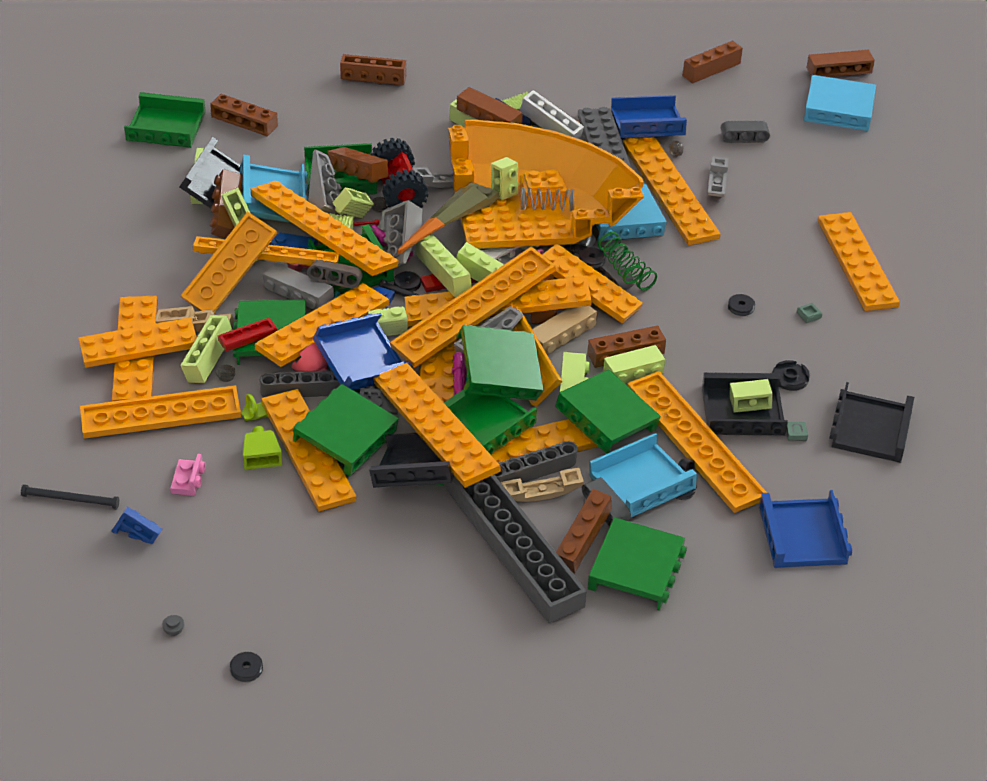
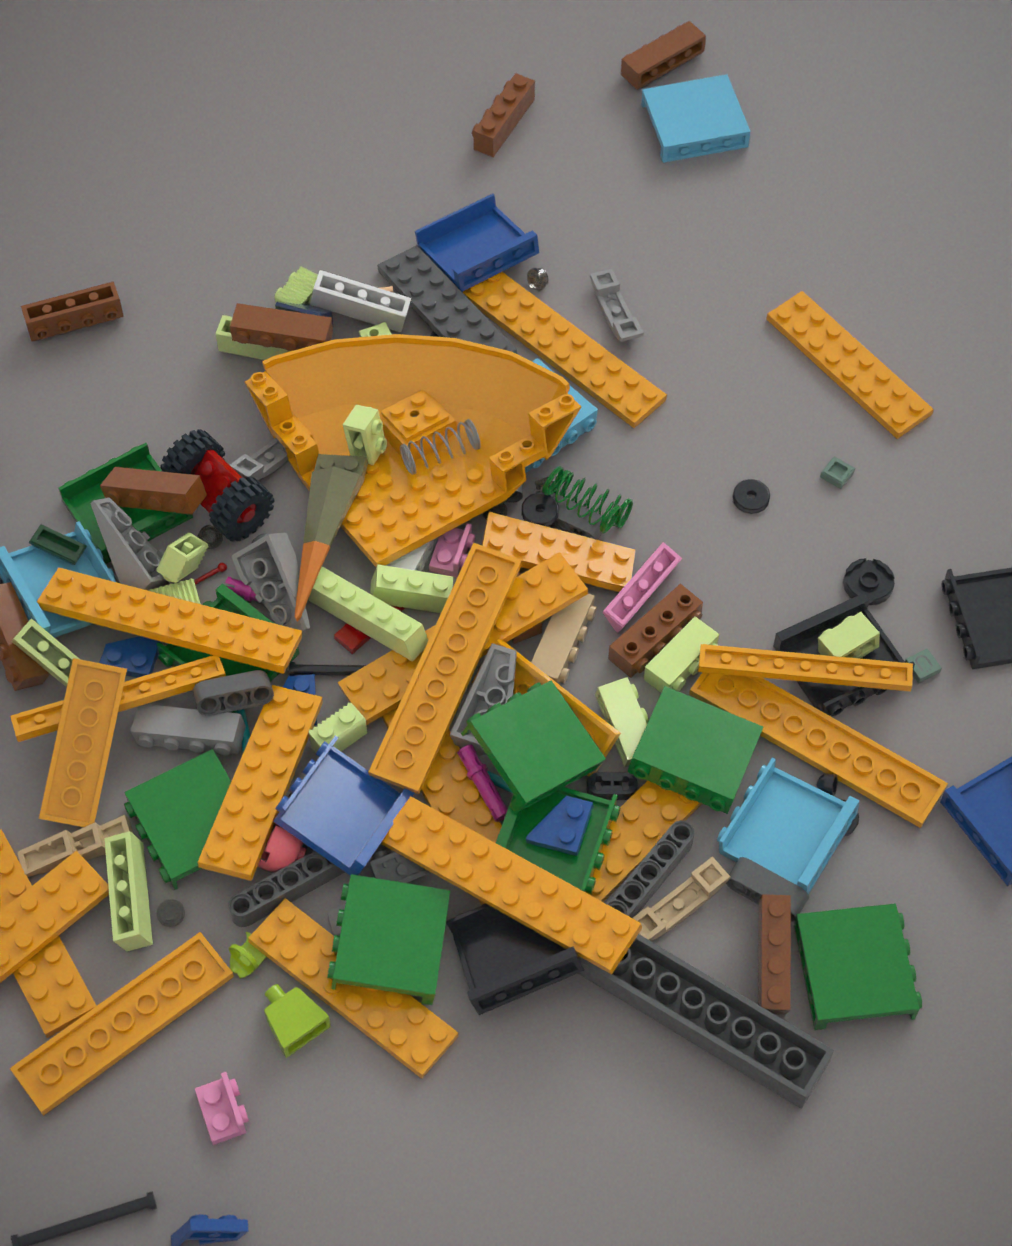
camera: 25 degrees left, 15 degrees up
(247, 334) = (174, 847): red plate -> none
(283, 171) = (57, 544): none -> dark green tile
(408, 280) = (316, 639): black piece -> none
(492, 415) = (563, 826): none -> blue wing
(544, 413) = (612, 784): none -> black beam
(639, 318) = (641, 586): none -> bright pink slope
(710, 394) = (806, 667): none -> light orange plate
(745, 131) = (606, 214): dark grey beam -> none

